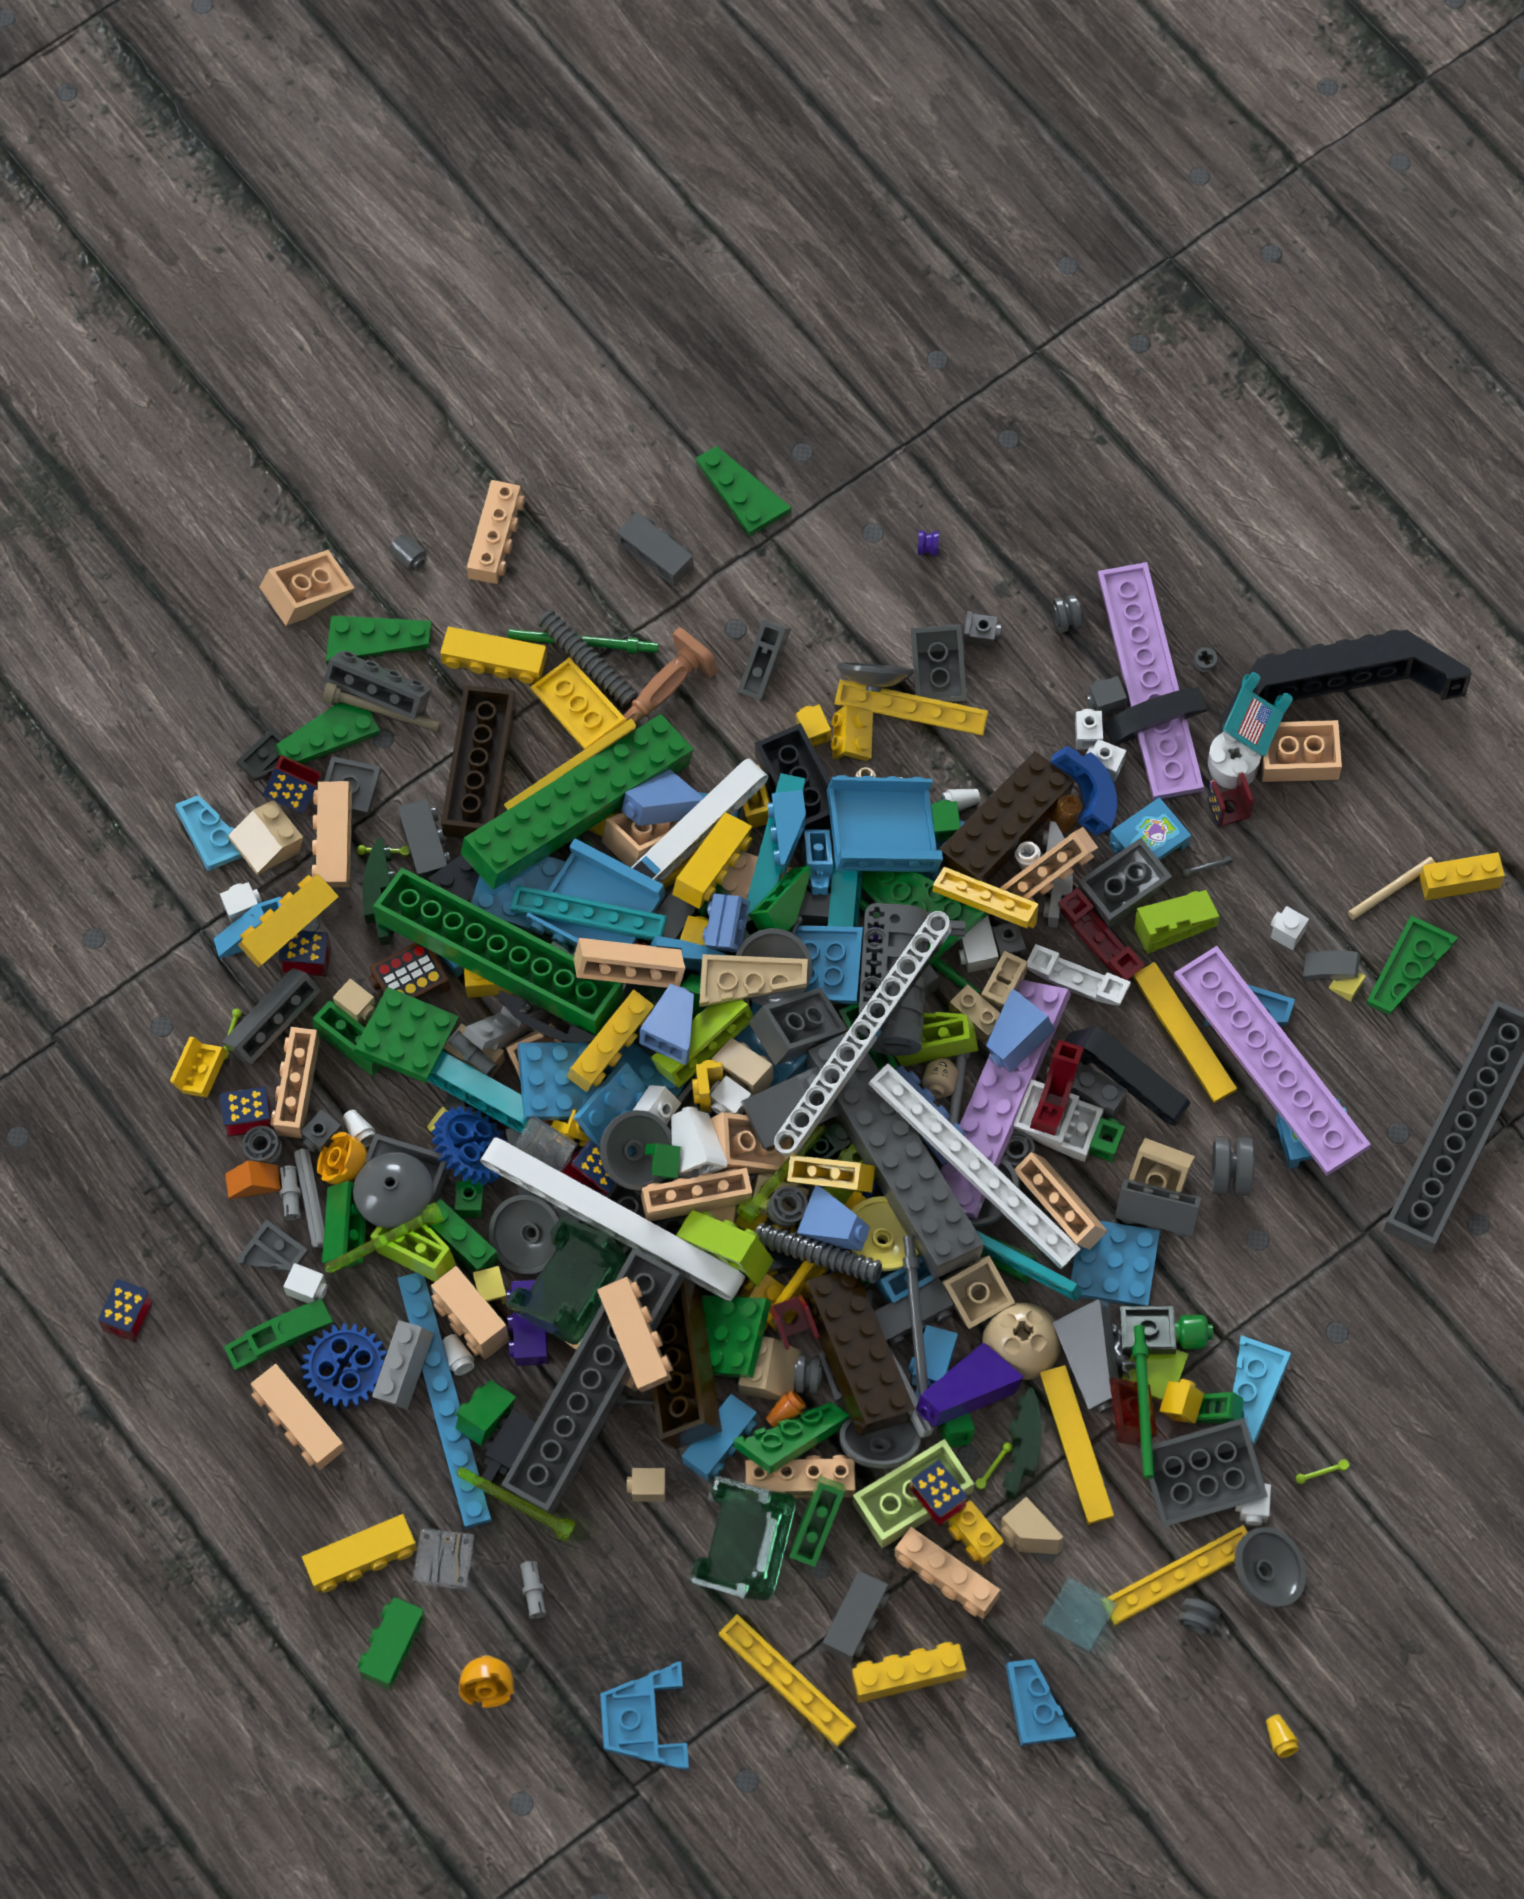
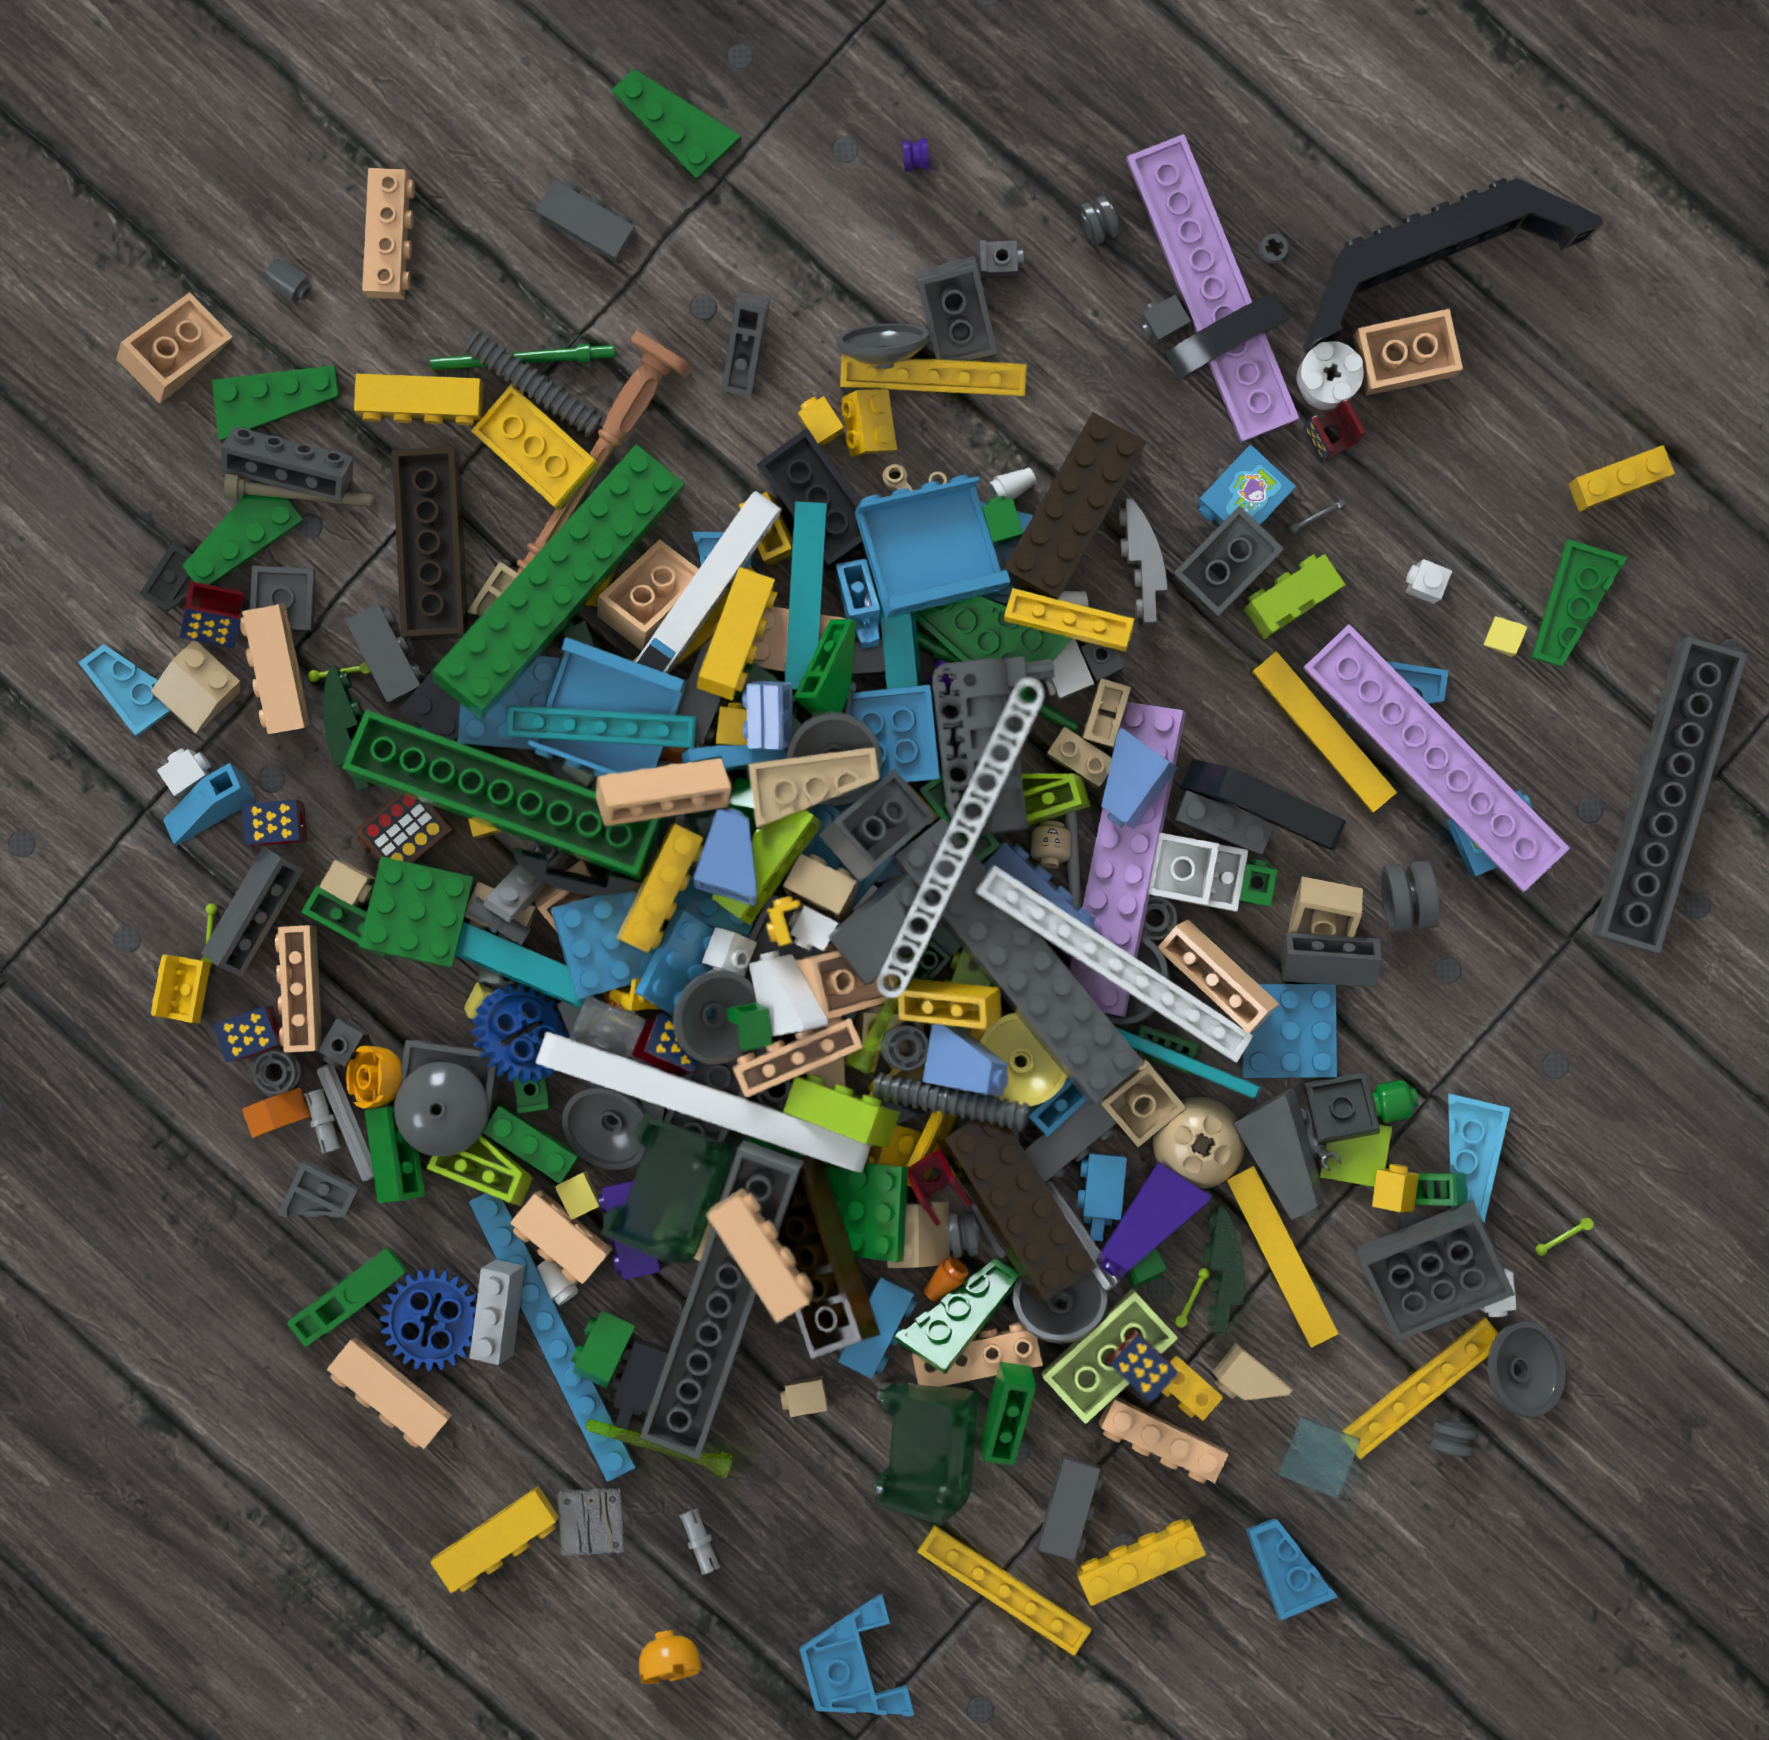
camera: 10 degrees left, 20 degrees up
(125, 1310) = (163, 1301): piece -> none
(287, 920) = (244, 799): yellow brick -> none
(305, 1284) = (364, 1233): white brick -> none
(359, 1127) = (385, 1028): white cone -> none
(391, 1643) = (552, 1633): green brick -> none
(430, 1215) = (492, 1134): clear neon green piece -> none
(609, 739) = (540, 535): yellow tile -> none
(660, 800) = (659, 557): medium blue slope -> none
(789, 821) = (818, 566): dark azure slope -> none
(911, 1264) = (1062, 1096): dark grey bar -> none
(1027, 854) = (1107, 542): white cone -> none
(1052, 865) = (1138, 566): light nougat brick -> none
(1057, 1087) = (1194, 849): dark red arch -> none
(1066, 812) = (1142, 482): clear orange brick -> none
(1075, 978) = (1189, 687): white slope -> none
(1088, 728) = (1150, 366): white brick -> none
(1095, 785) = (1174, 444): blue arch -> none
(1098, 936) = (1207, 633): dark red slope -> none
(1110, 756) = (1176, 403): white brick -> none
(1126, 1411) = (1343, 1216): clear red slope -> none
(1141, 1353) = (1342, 1145): green bar -> none
(1253, 718) = (1352, 327): teal flag -> none
(1282, 1738) = (1566, 1555): yellow cone -> none
(1333, 964) = (1485, 620): dark grey slope -> none
(1388, 890) = (1538, 505): tan bar -> none

